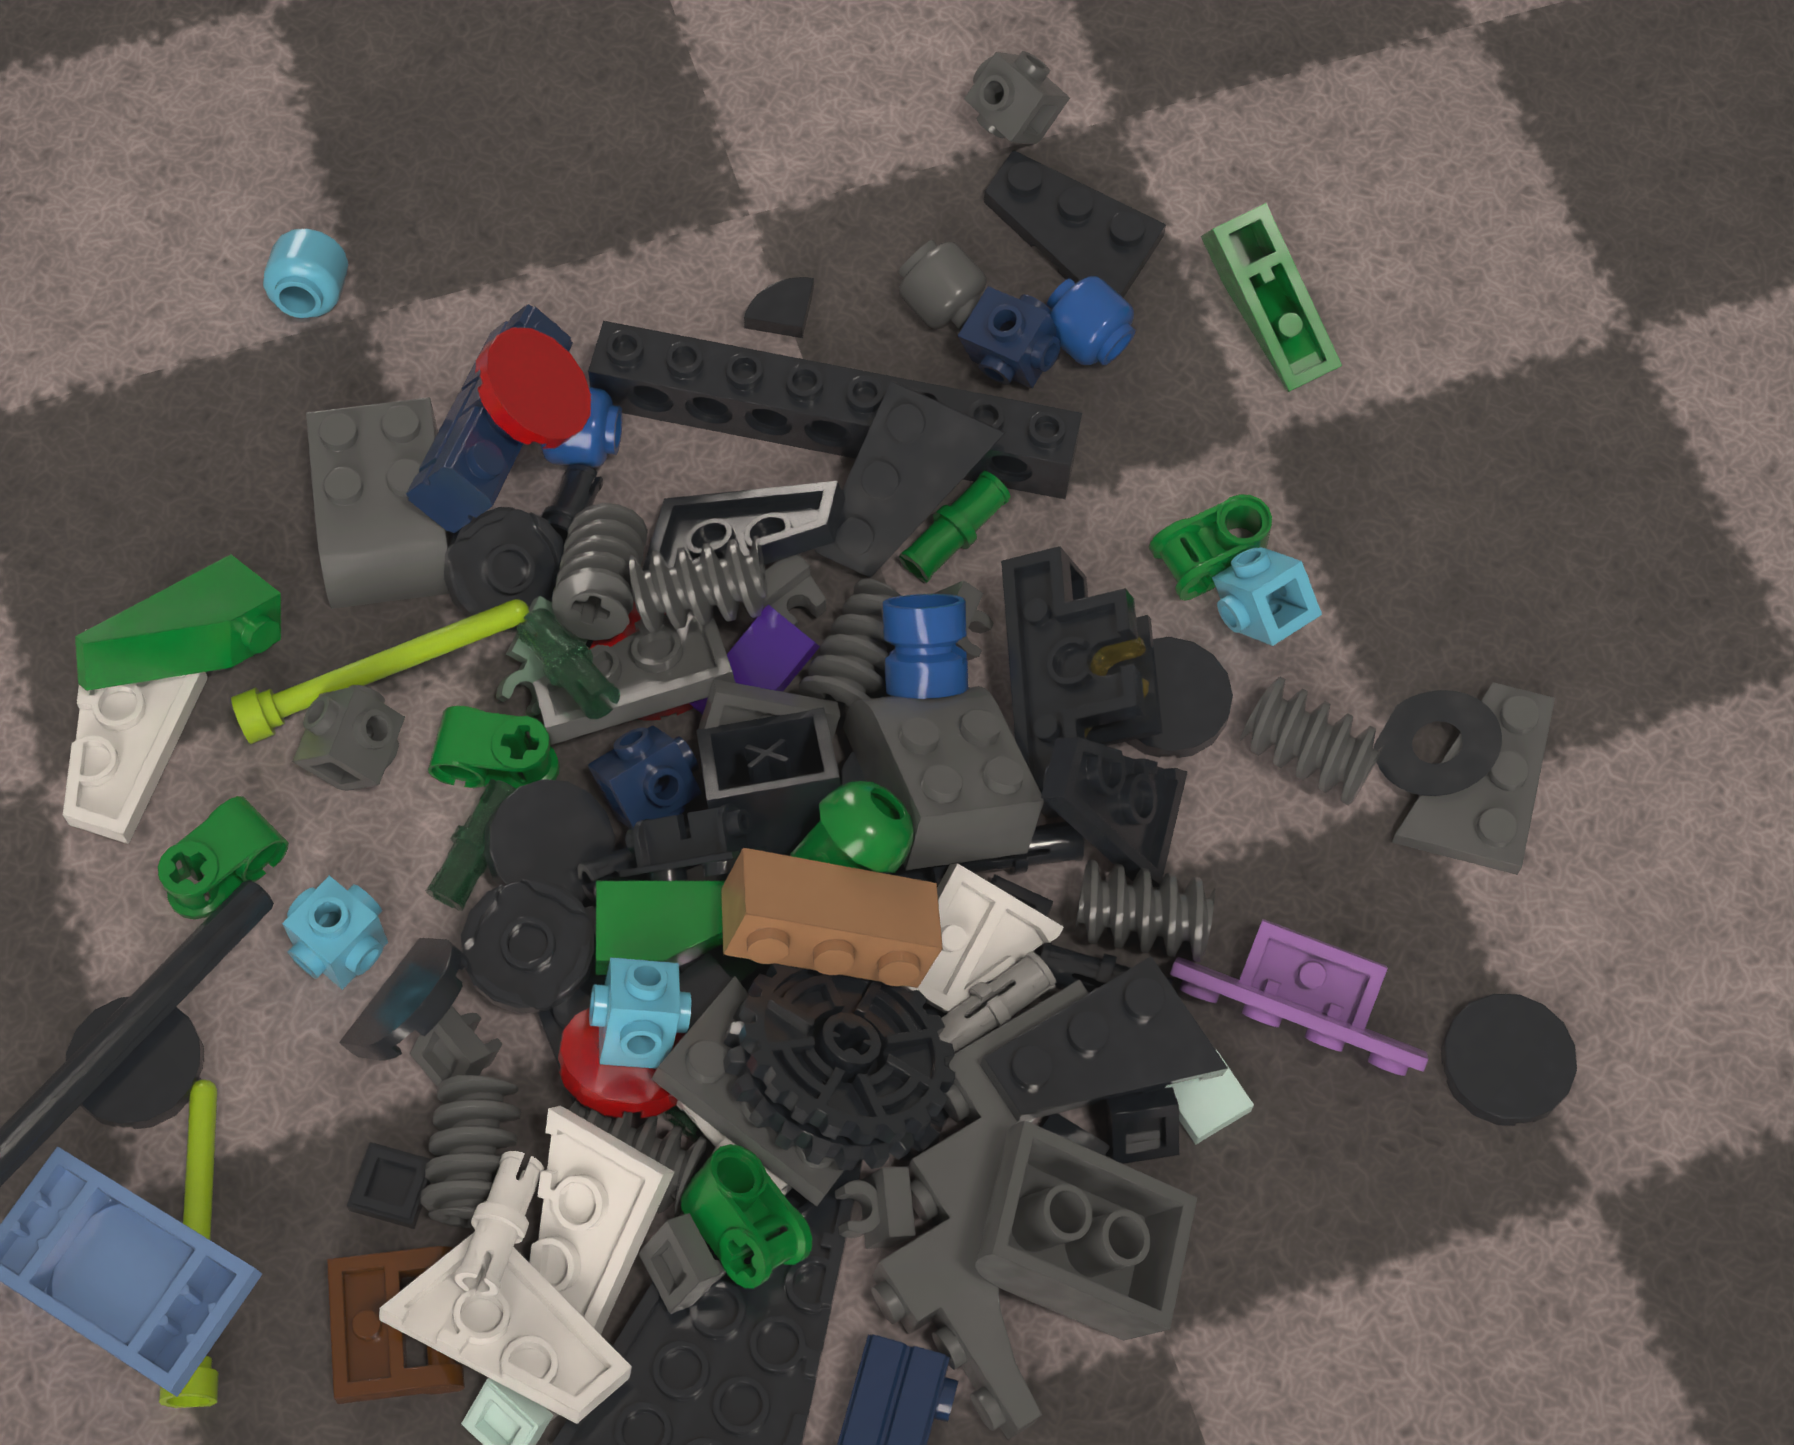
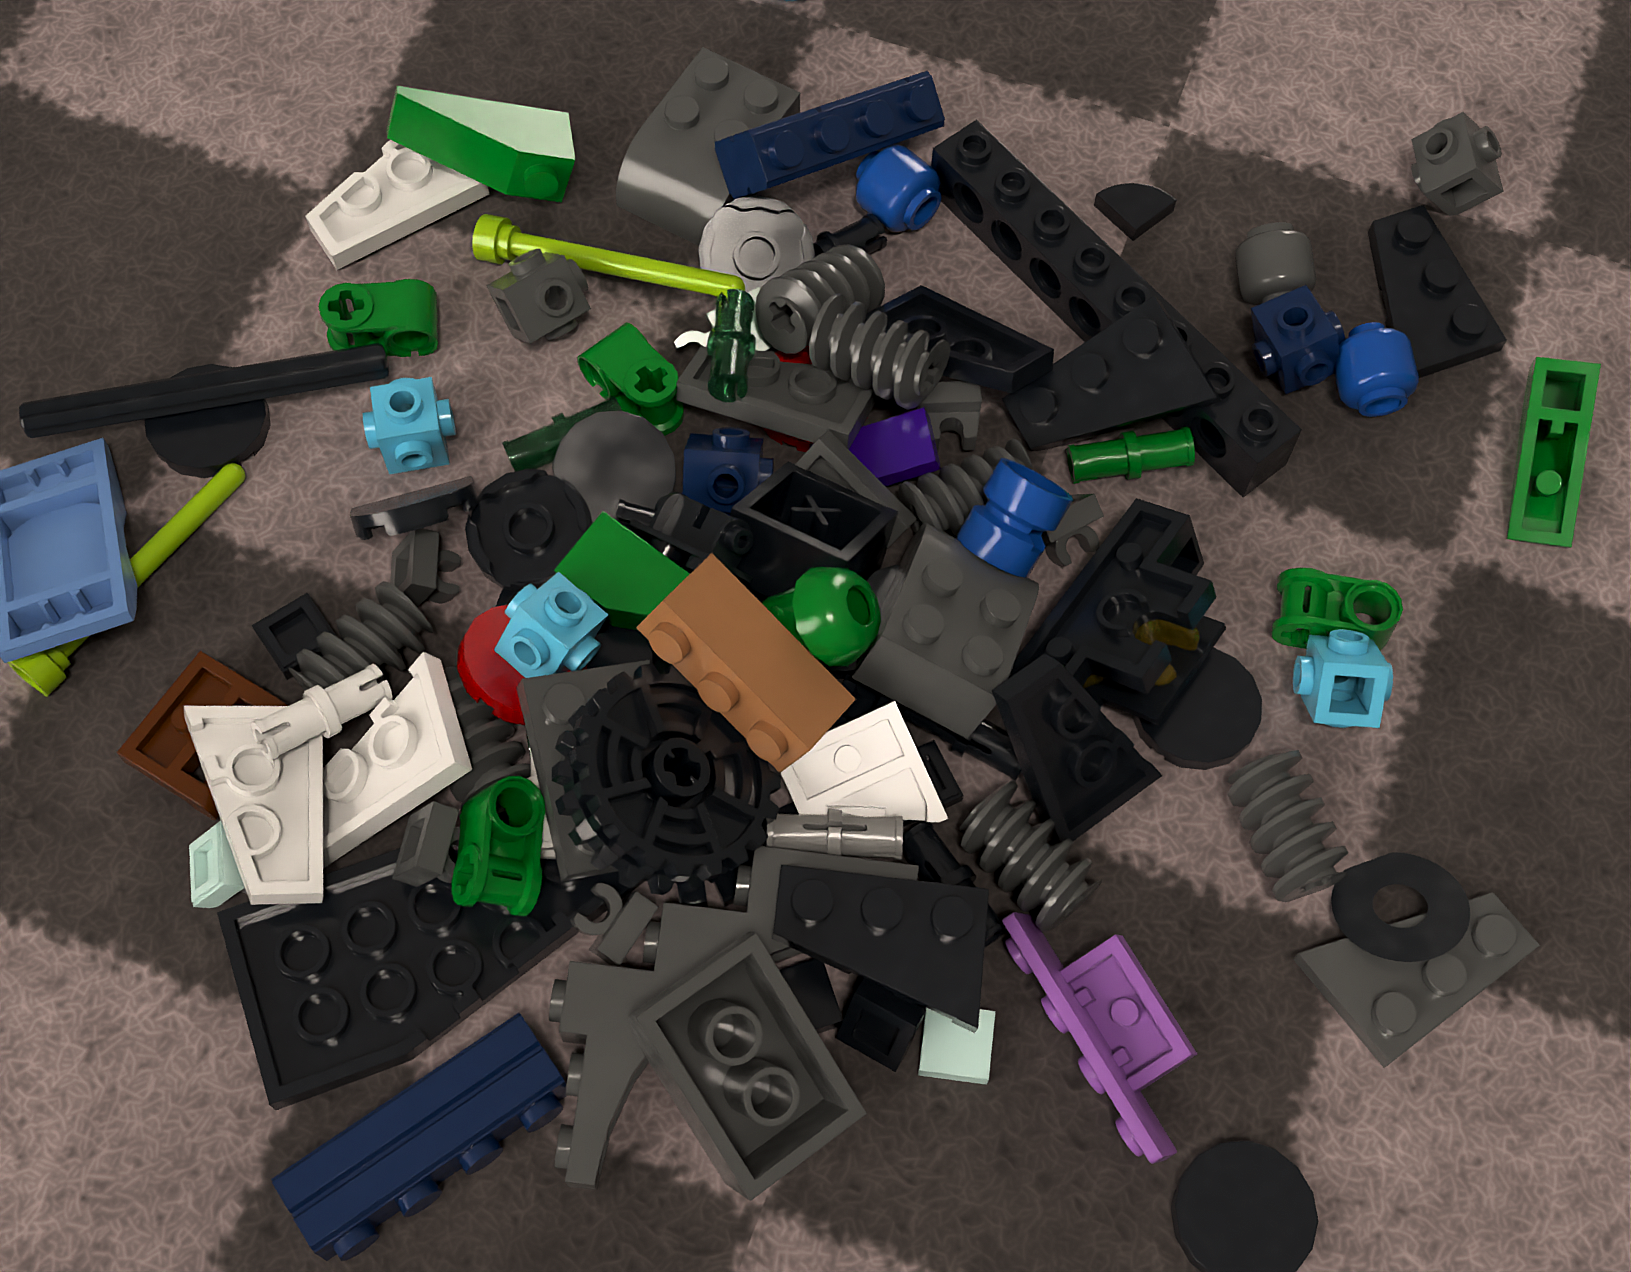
camera: 40 degrees right, 0 degrees up
(533, 387) = (870, 123): red tile -> none

